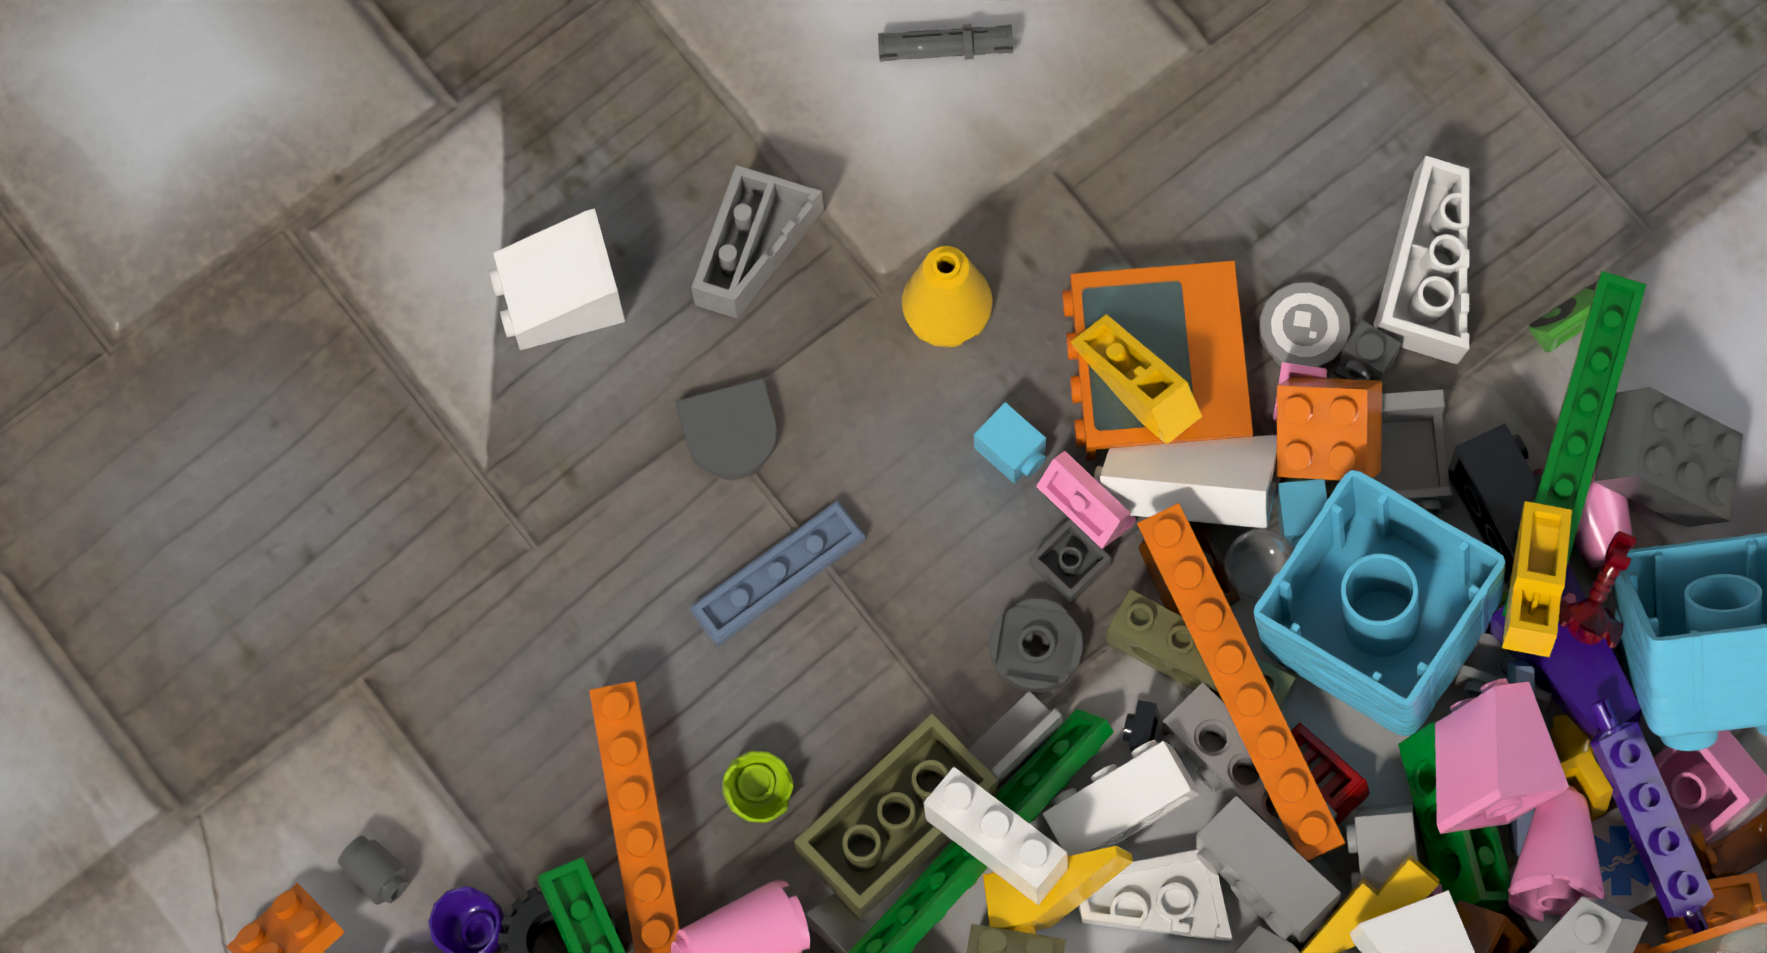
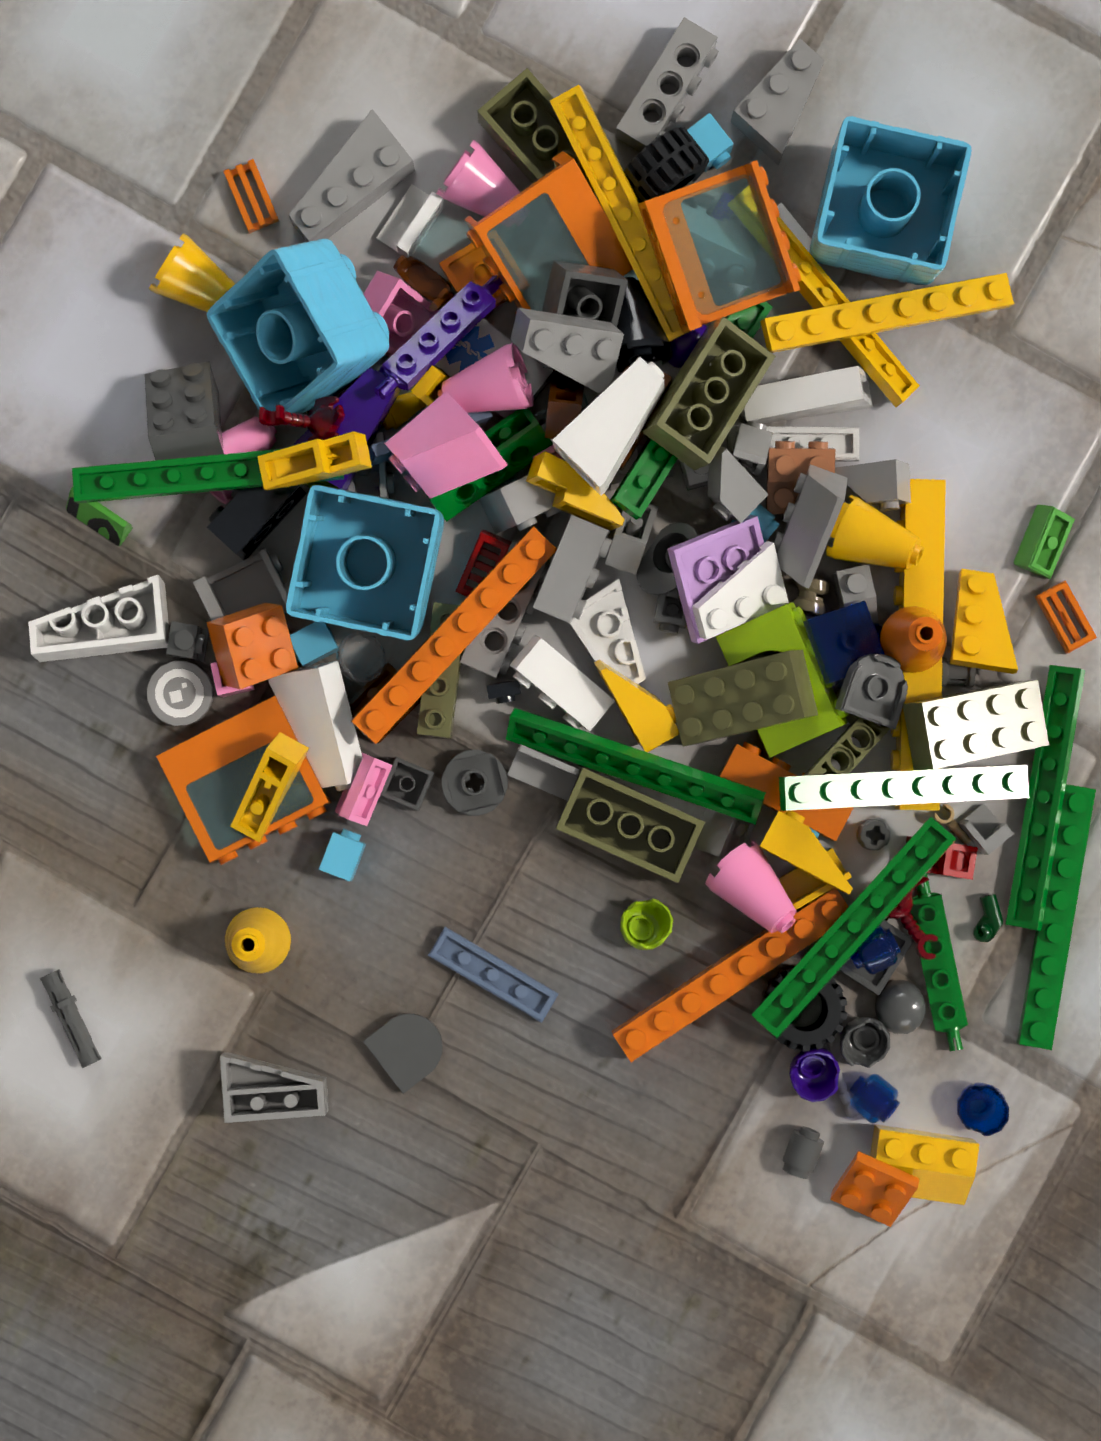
camera: 120 degrees left, 15 degrees up
(557, 283) = (354, 1210): white slope -> none
(996, 835) = (626, 751): white brick -> none

